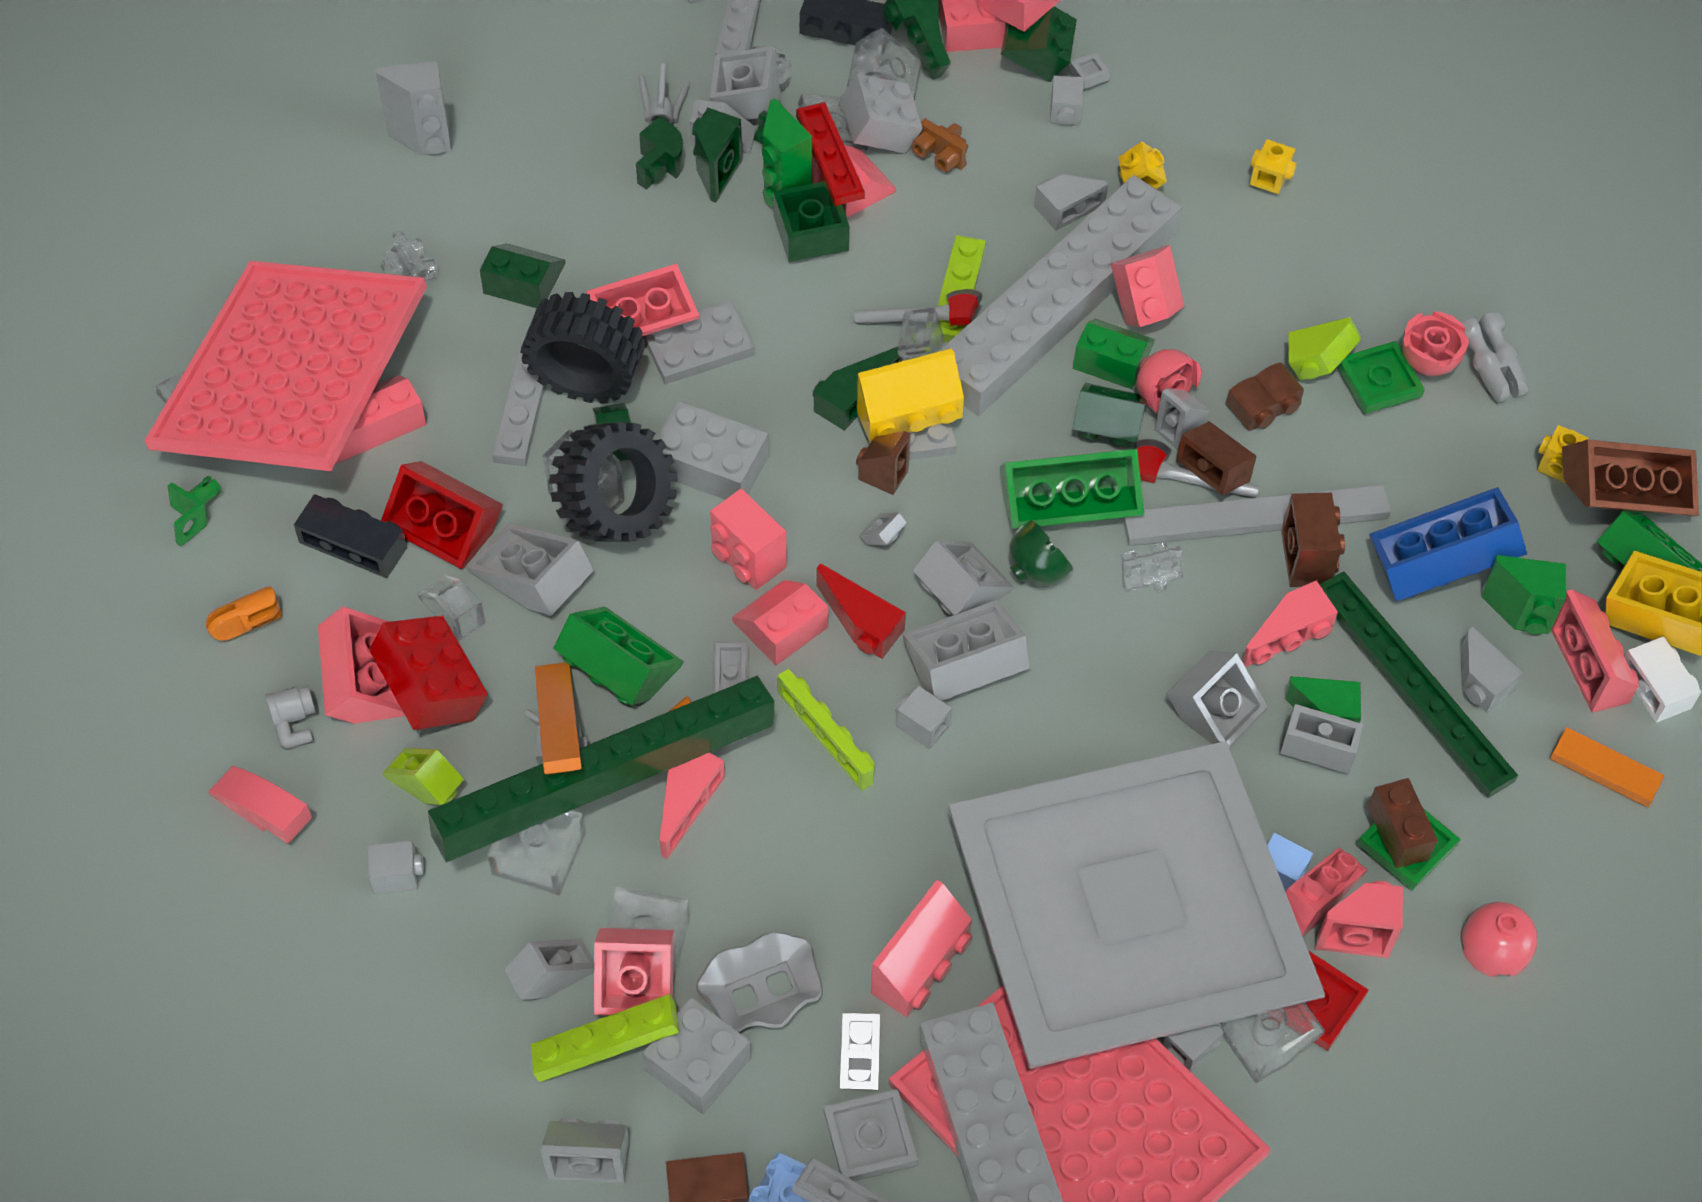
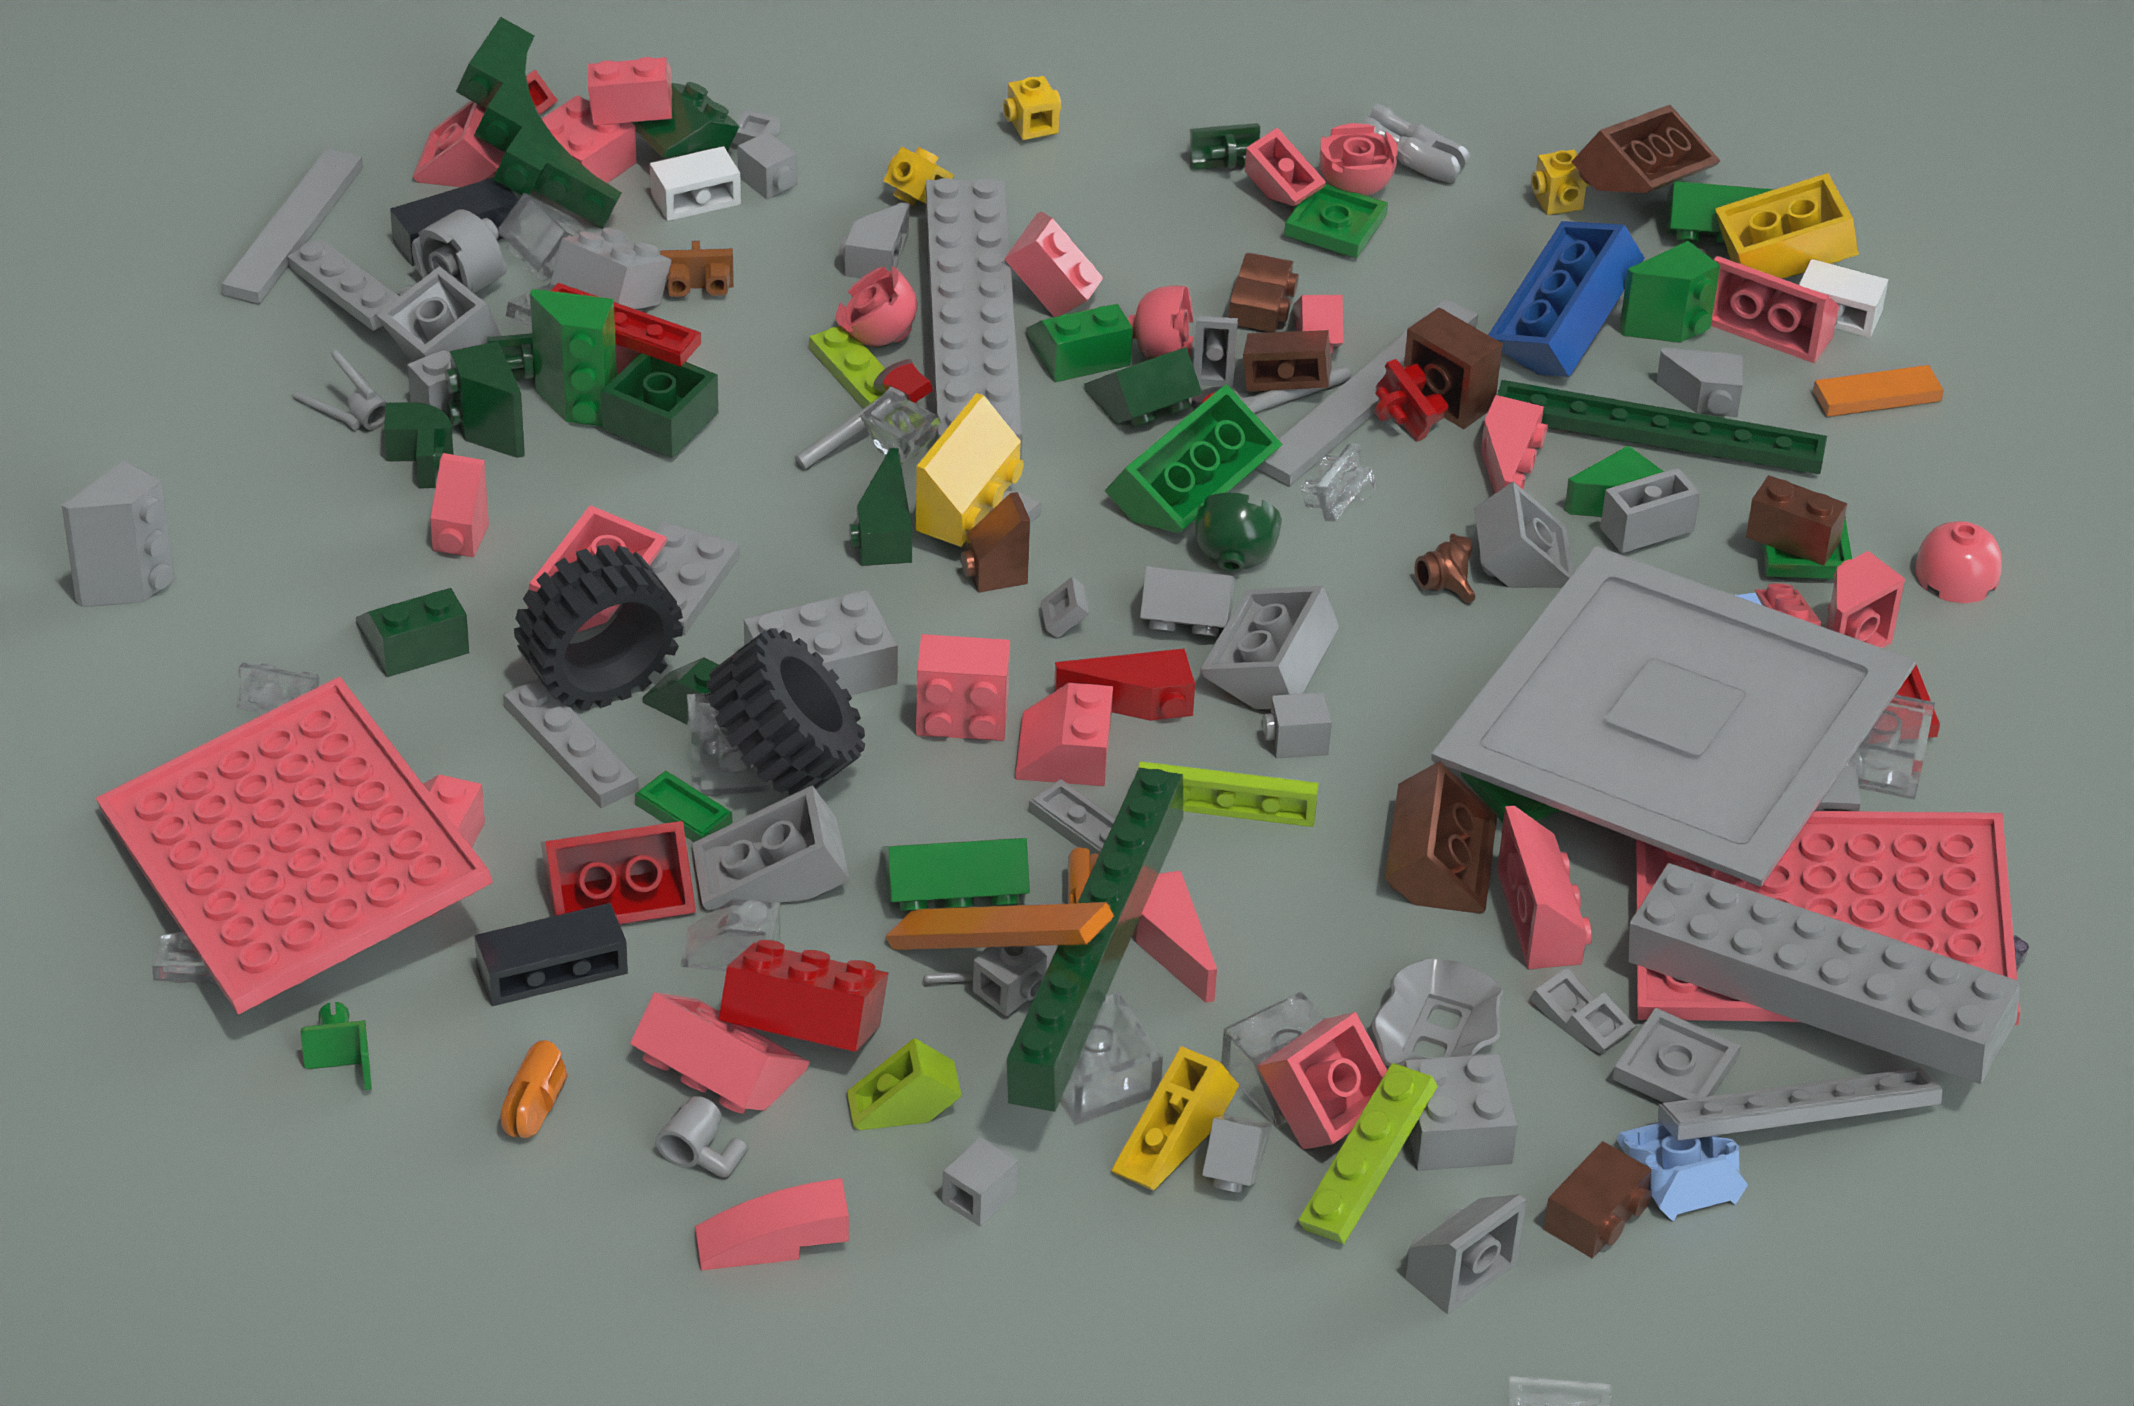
camera: 45 degrees left, 15 degrees down
(530, 497) = (674, 801): none -> green tile
(549, 915) = (1176, 1118): none -> yellow slope
(621, 213) = (459, 506): none -> coral slope
(811, 45) = (463, 248): none -> light grey brick
(905, 864) = (1441, 842): none -> copper slope
(1008, 247) = (879, 309): none -> coral cylinder
(1009, 84) = (695, 183): none -> white brick
(1150, 677) = (1447, 567): none -> copper animal
(1266, 527) = (1405, 403): none -> red hips
(1275, 443) = (1321, 313): none -> coral slope
(1321, 347) = (1265, 219): lime slope -> none
(1368, 275) = (1221, 145): none -> dark green hips
(1376, 318) = (1281, 169): none -> coral slope

